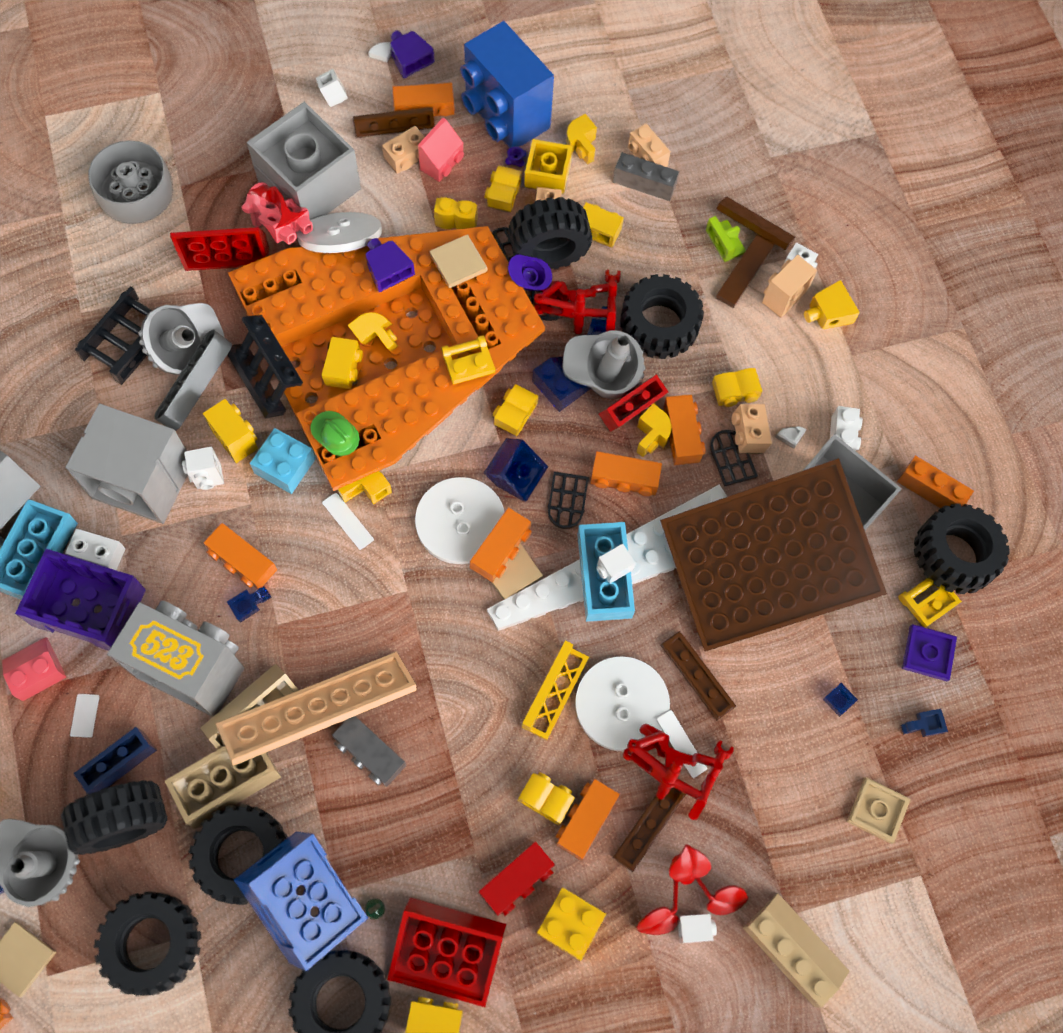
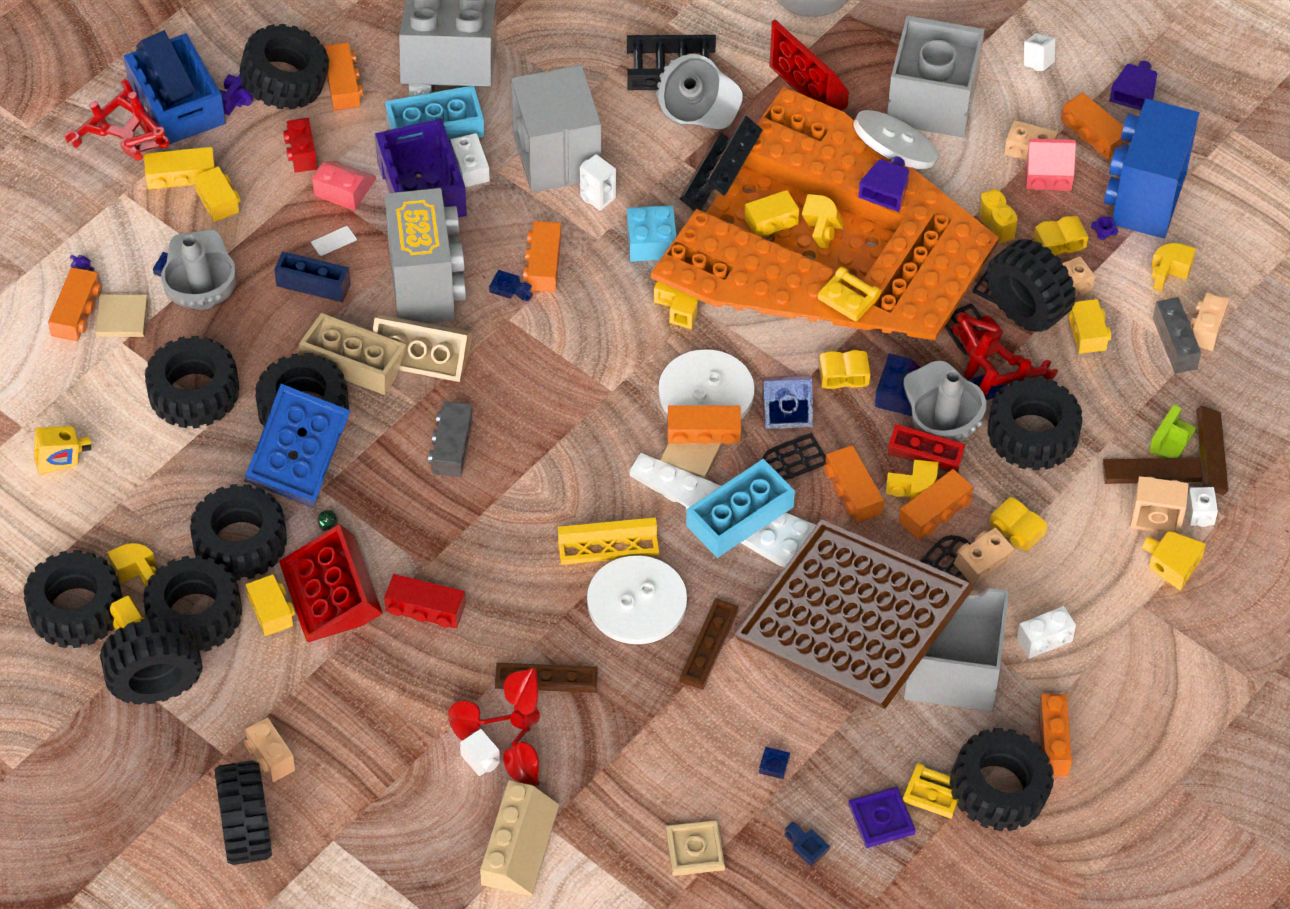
camera: 60 degrees right, 15 degrees down
(113, 817) = (268, 293): black tyre -> none
(193, 380) = (668, 128): dark grey beam -> none
(231, 430) = (646, 178): yellow brick -> none
(271, 210) = (873, 74): coral hips -> none
(315, 708) = (458, 375): light nougat plate -> none
(335, 433) = (699, 243): bright green piece -> none
(348, 521) = (638, 314): white sticker -> none
(380, 51) = (1116, 65): white tile -> none
(393, 122) = (1050, 116): reddish brown tile -> none
(458, 261) = (939, 233): tan tile -> none
(529, 272) = (980, 294): dark purple piece -> none
(546, 798) = (508, 585): yellow brick -> none
(548, 165) = (1112, 253): yellow brick -> none
(571, 924) = (416, 658): yellow brick -> none
(586, 819) = (513, 624): orange brick -> none
(615, 564) = (745, 498): white brick -> none
(674, 760) = (595, 647): red piece -> none
(680, 740) = (635, 662): white sticker -> none
(791, 435) = (1015, 599): white tile -> none

